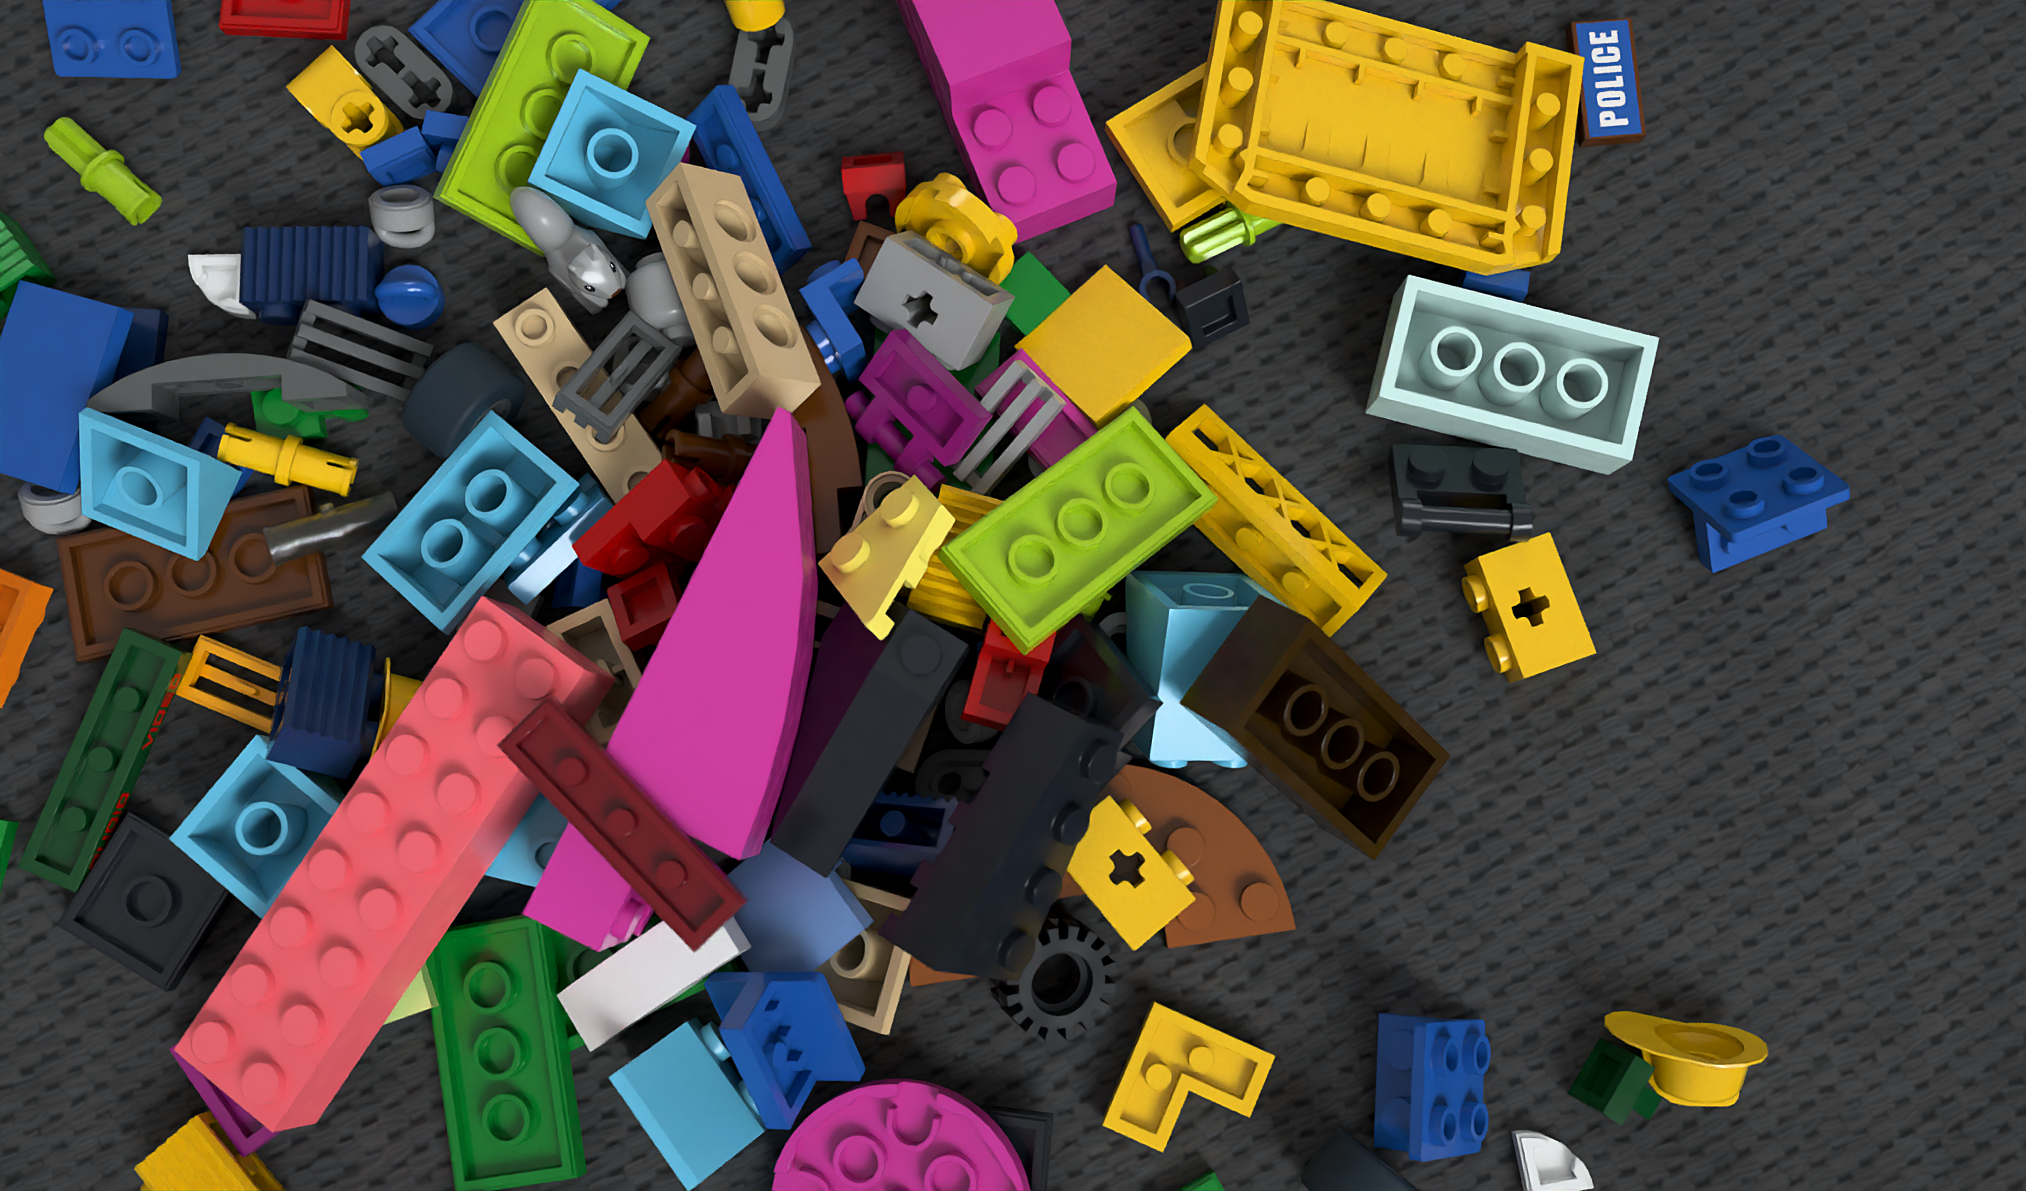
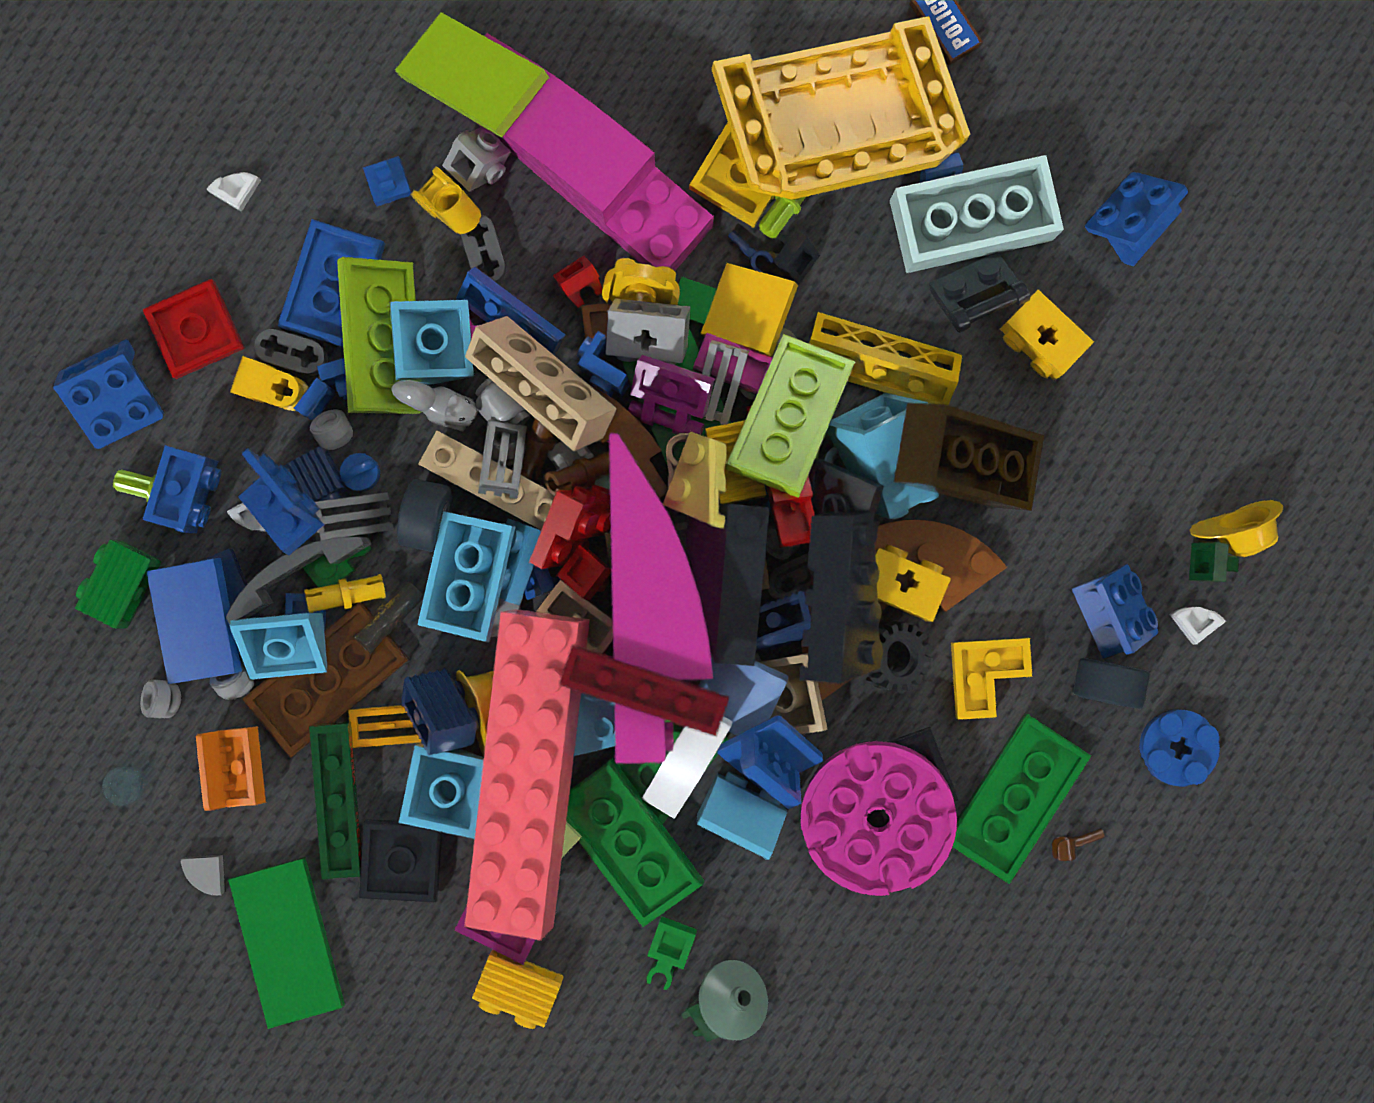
camera: 25 degrees left, 5 degrees up
(136, 191) = (182, 490): none -> blue bracket
(253, 272) = (278, 505): none -> blue bracket

